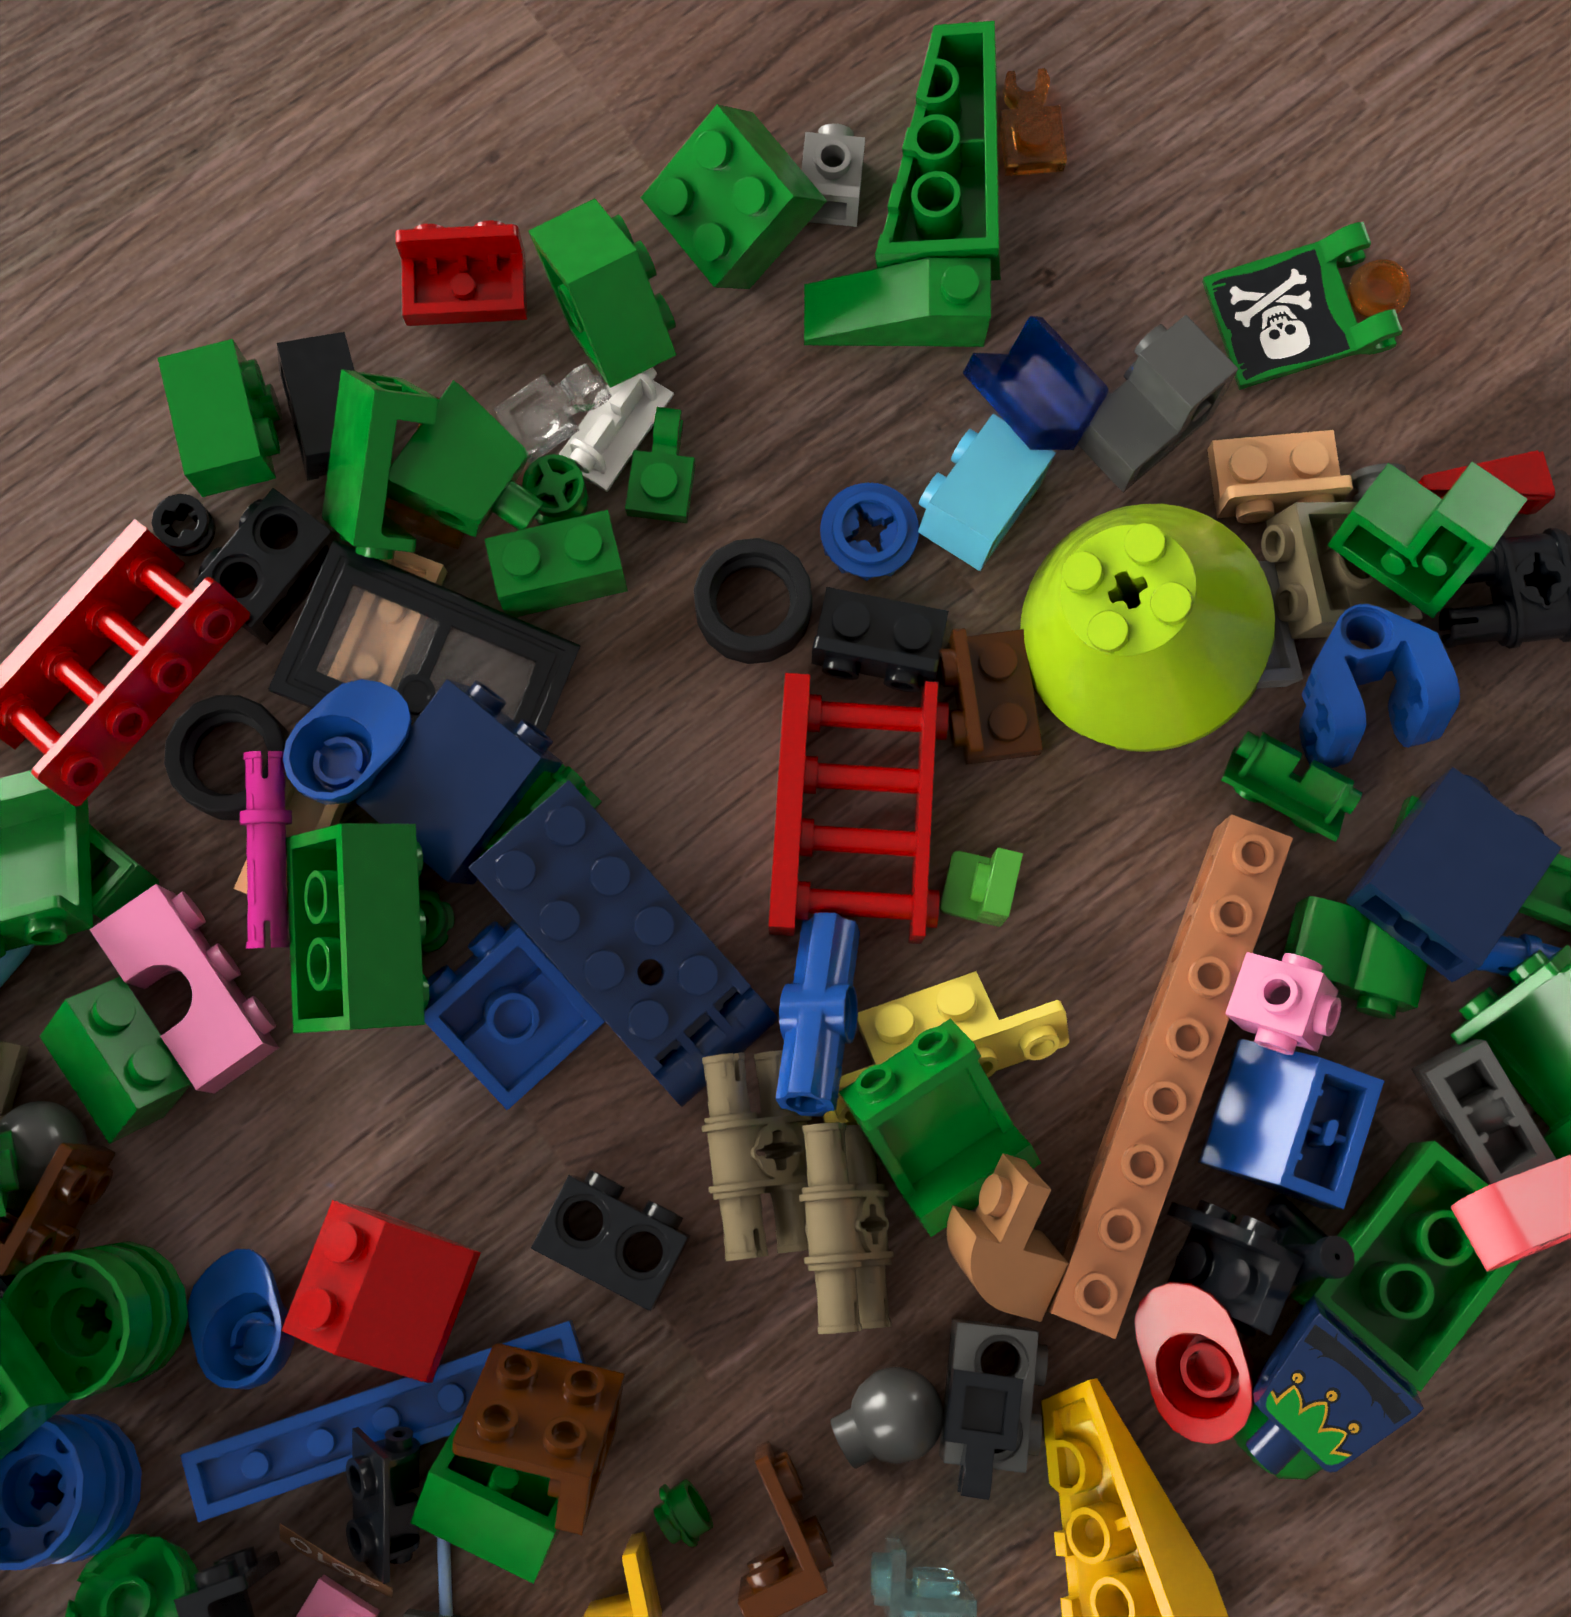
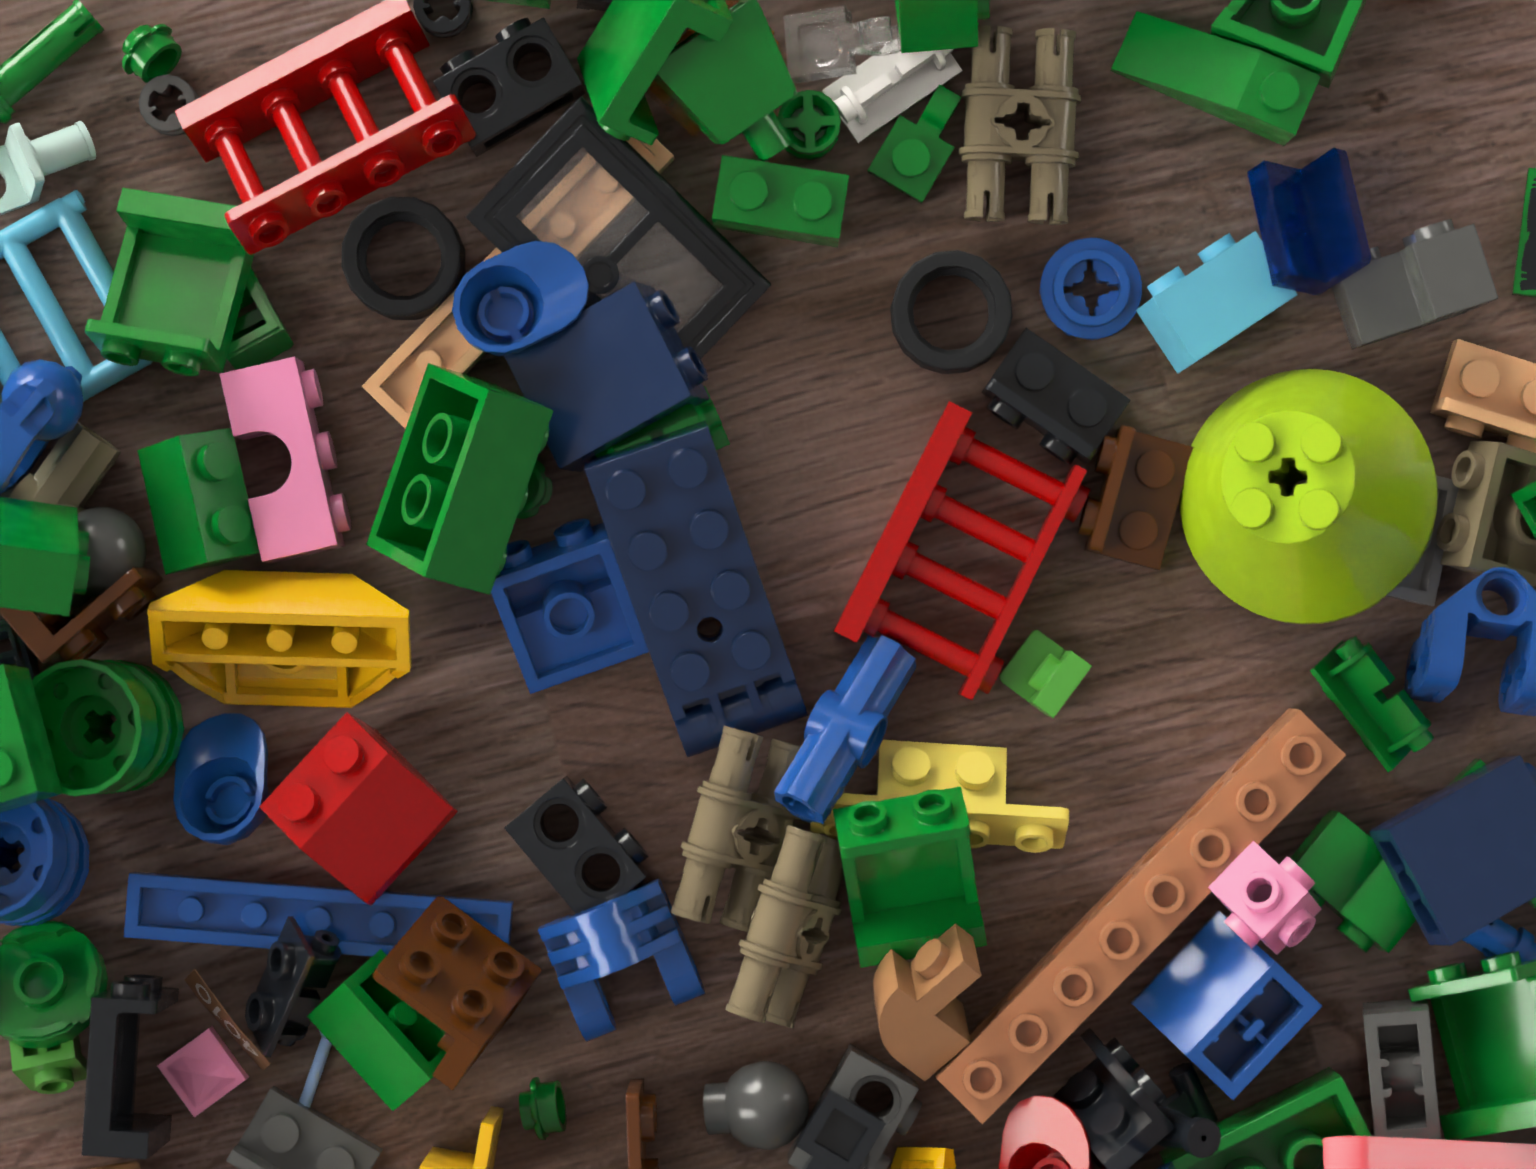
camera: 30 degrees right, 10 degrees up
(242, 1159) = (281, 638): none -> yellow wedge
(266, 849) = (406, 366): dark pink pin -> none
(678, 1311) = (615, 938): none -> blue piece
(726, 437) = (1046, 104): none -> dark tan pin

